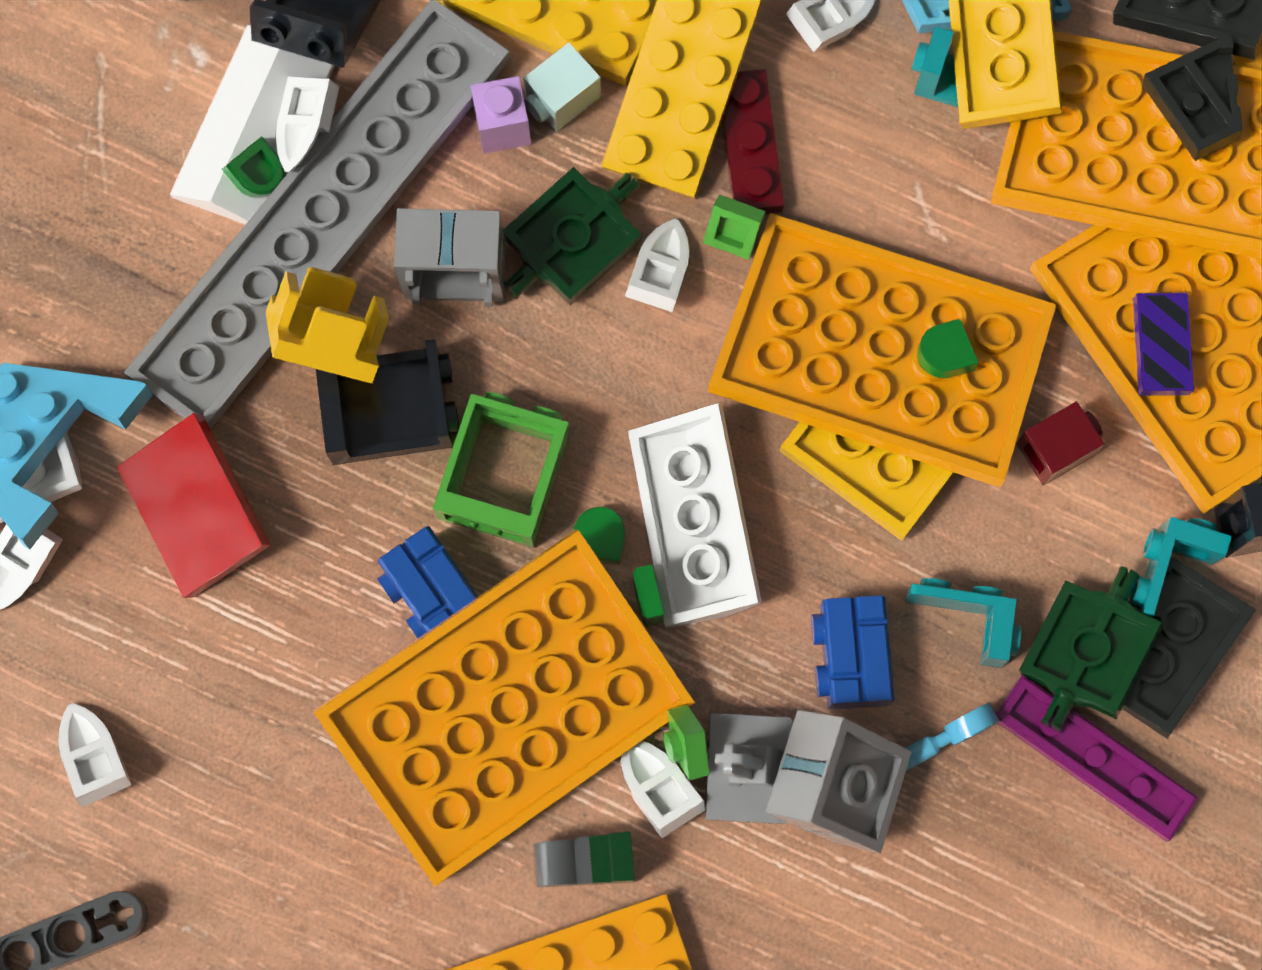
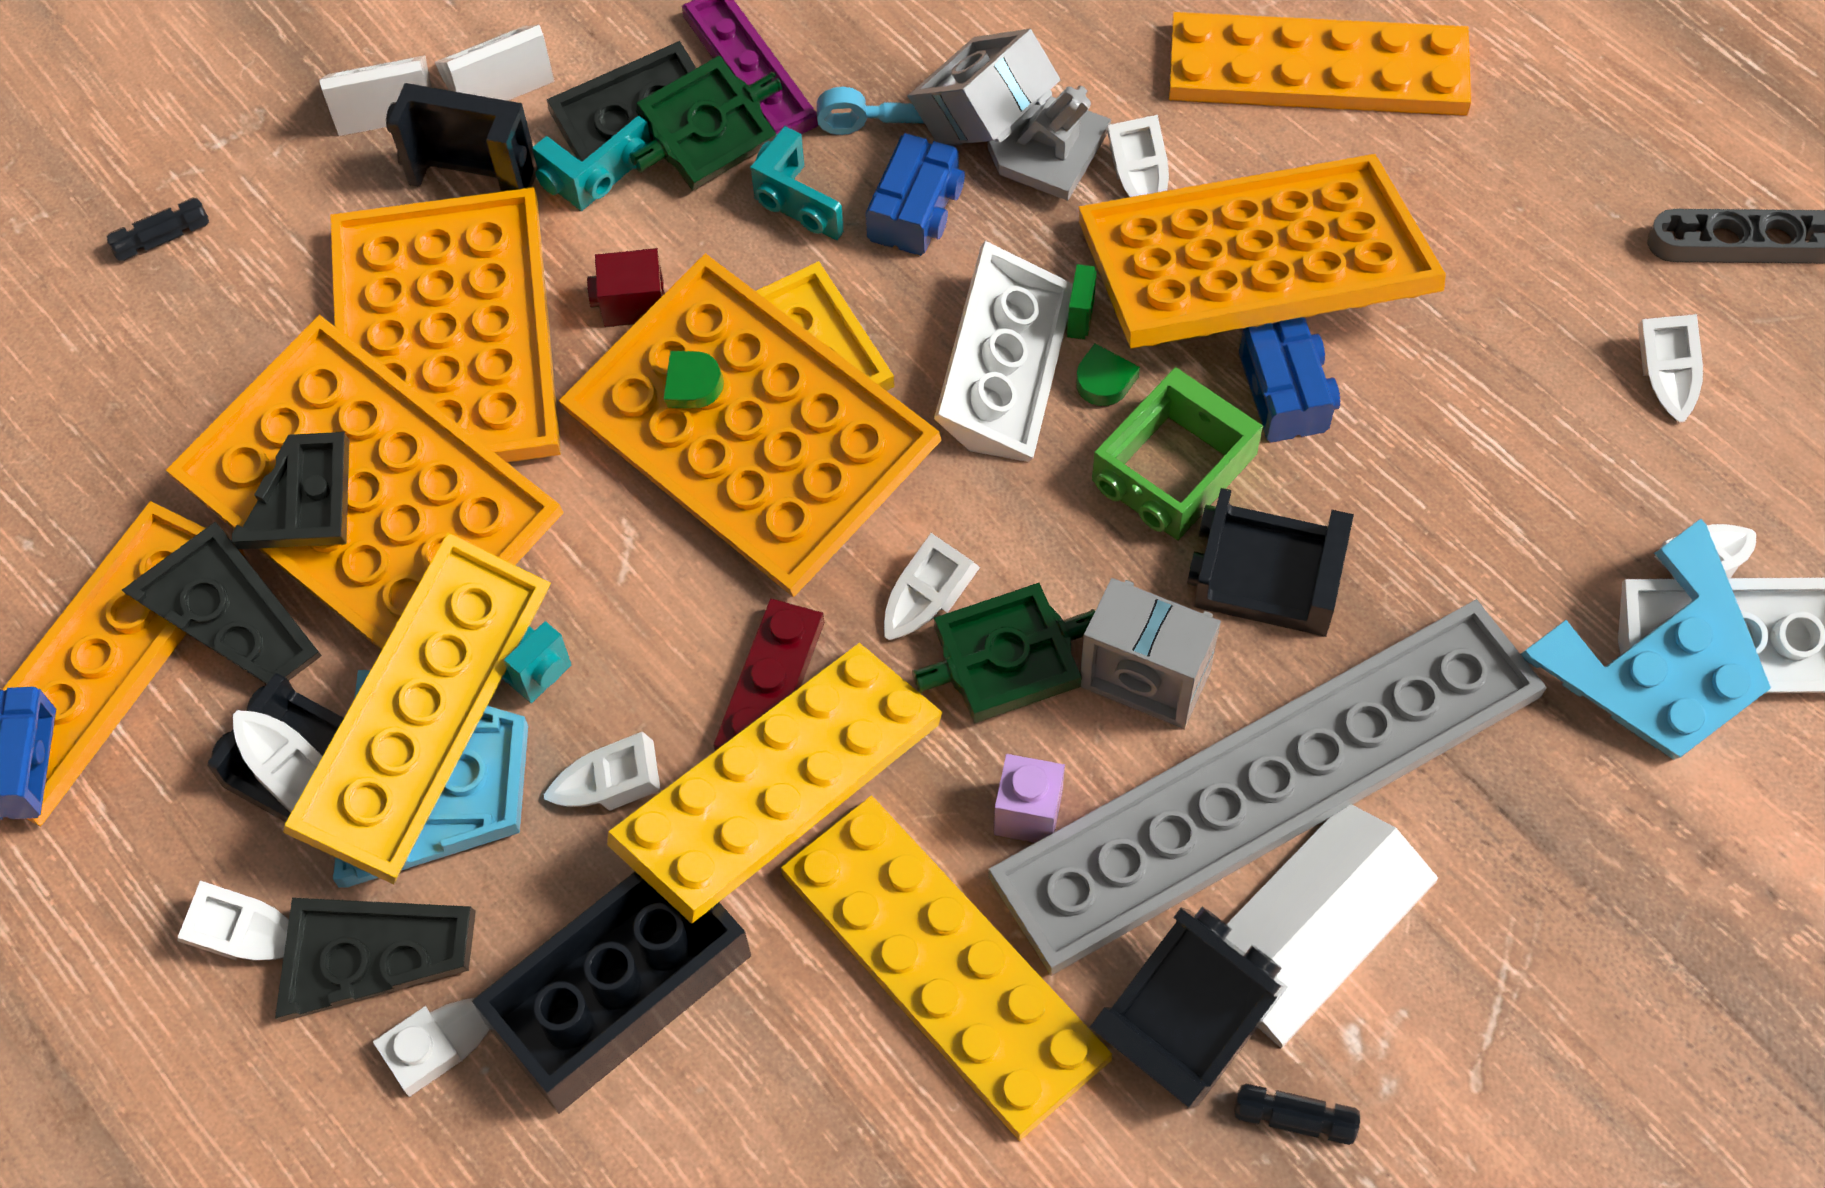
camera: 155 degrees left, 15 degrees down
(193, 505) = (1507, 535): tile -> none
(256, 170) = (1331, 847): green tile -> none
(304, 113) = (1256, 877): white plate -> none
(317, 331) = (1314, 617): yellow panel -> none
(561, 88) = (948, 807): light aqua brick -> none
(584, 861) = (1229, 130): leg -> none
(686, 742) = (1102, 172): bright green plate -> none
(734, 227) = (832, 592): bright green plate -> none
(1163, 344) = (484, 320): dark purple tile -> none

